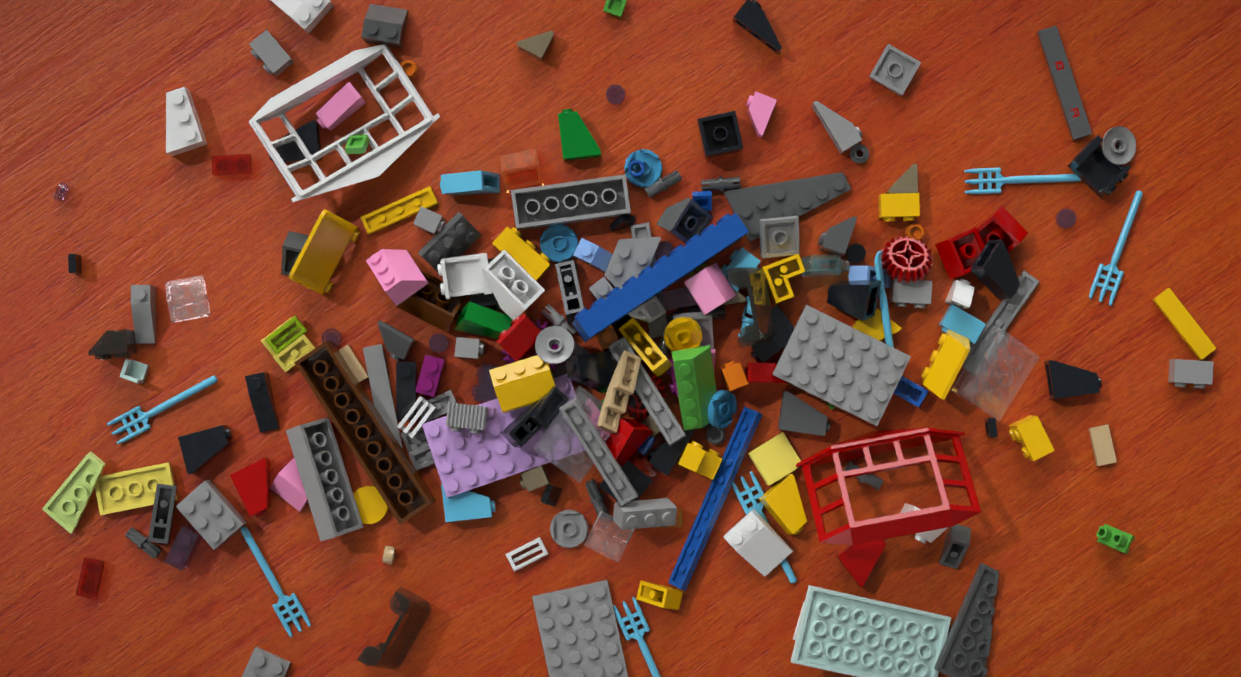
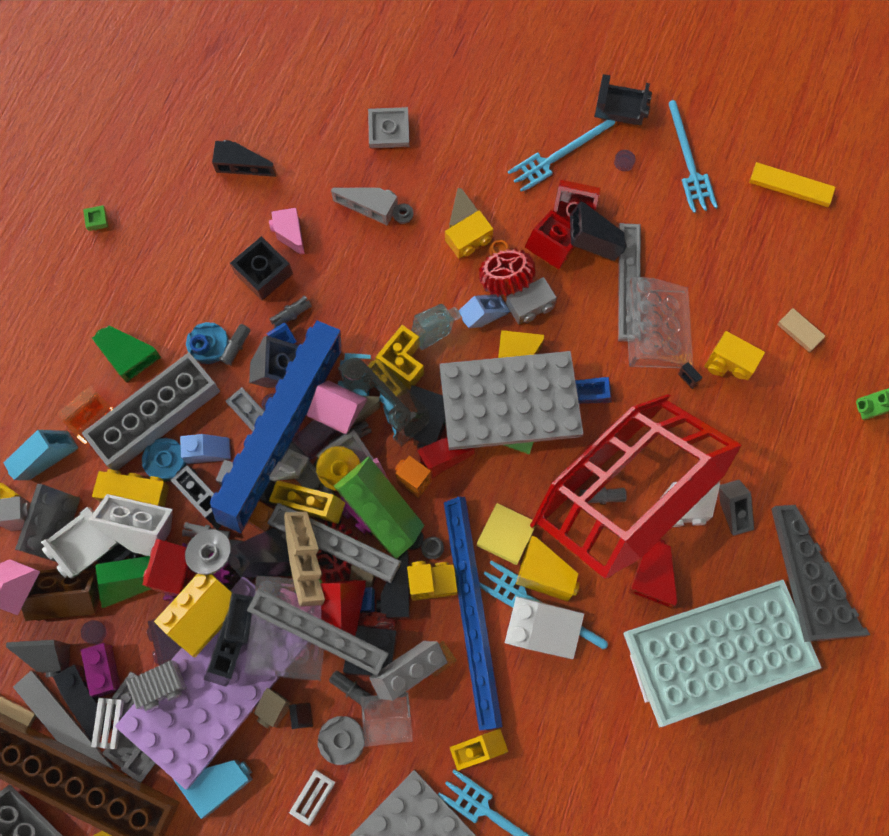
camera: 30 degrees left, 15 degrees down
(469, 348) = (124, 615): light grey brick -> none
(537, 45) = (38, 292): dark tan slope -> none
(615, 94) = (142, 294): tile -> none
(622, 222) = (216, 402): black tile -> none
(630, 259) = (240, 423): light grey wing -> none
(721, 408) = (421, 516): dark azure tile -> none
(779, 236) = (374, 324): light grey plate -> none
(783, 199) = (359, 296): dark grey wing -> none
(801, 417) = (505, 477): dark grey slope -> none
(837, 237) = (429, 288): dark grey slope -> none
(855, 253) = (457, 298): black tile -> none
(855, 297) = (482, 330): black slope -> none
(883, 301) = (514, 323): medium azure piece -> none
(945, 363) = (607, 339): yellow slope -> none
(960, 294) = (578, 276): white slope -> none
(961, 323) = (597, 301): medium azure brick -> none
(1064, 82) = (544, 56): dark grey tile -> none
(1069, 380) = (729, 290): black slope -> none
(1124, 142) = (626, 74): light grey dish -> none
(1190, 372) = (829, 218): light grey brick -> none

